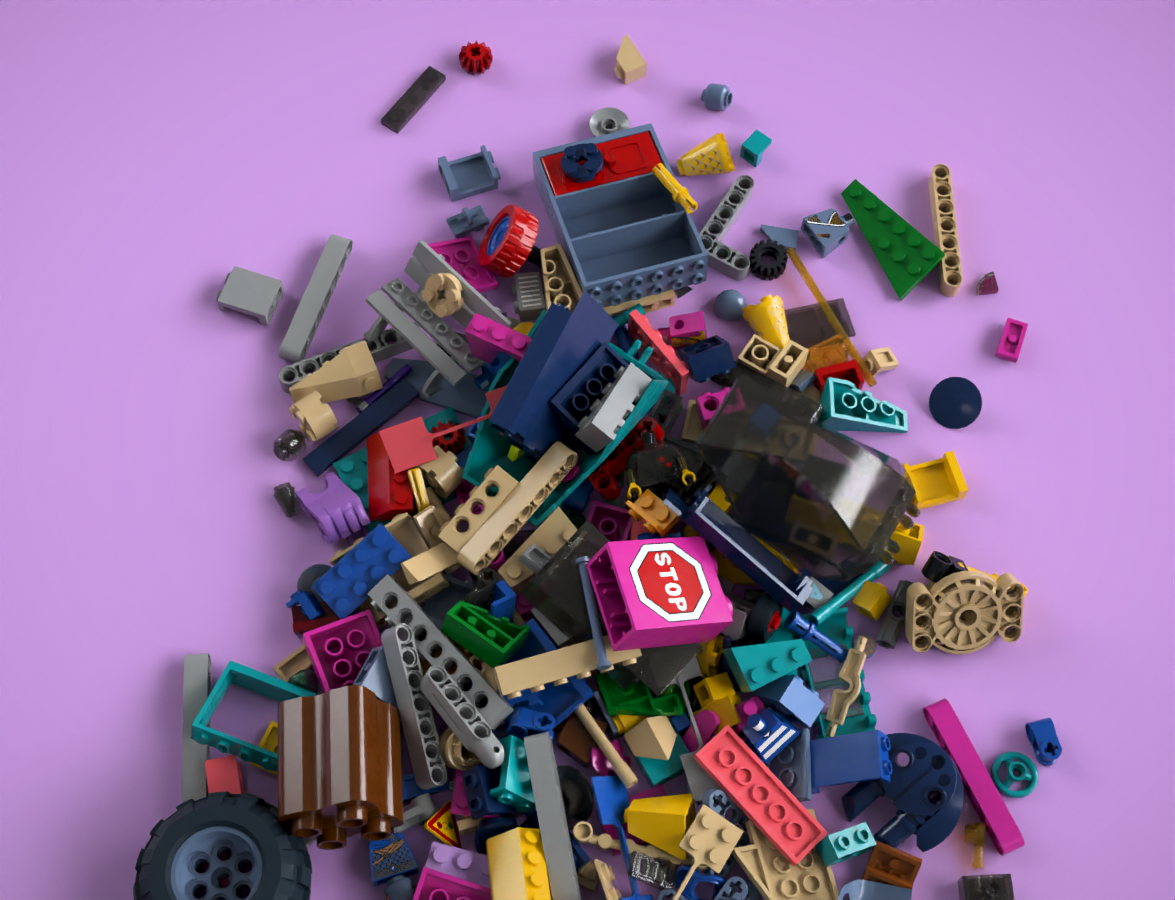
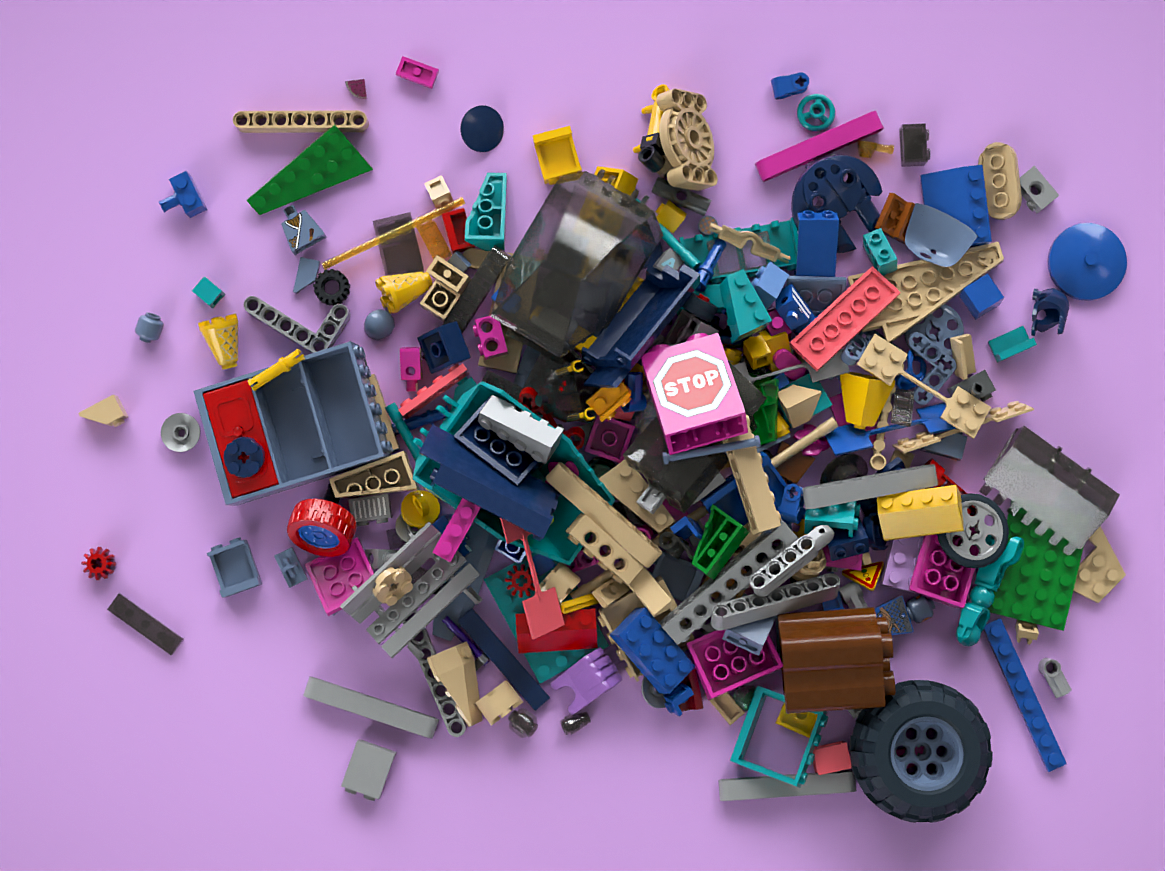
camera: 90 degrees left, 20 degrees up
(856, 127) = (185, 195): none -> blue brick

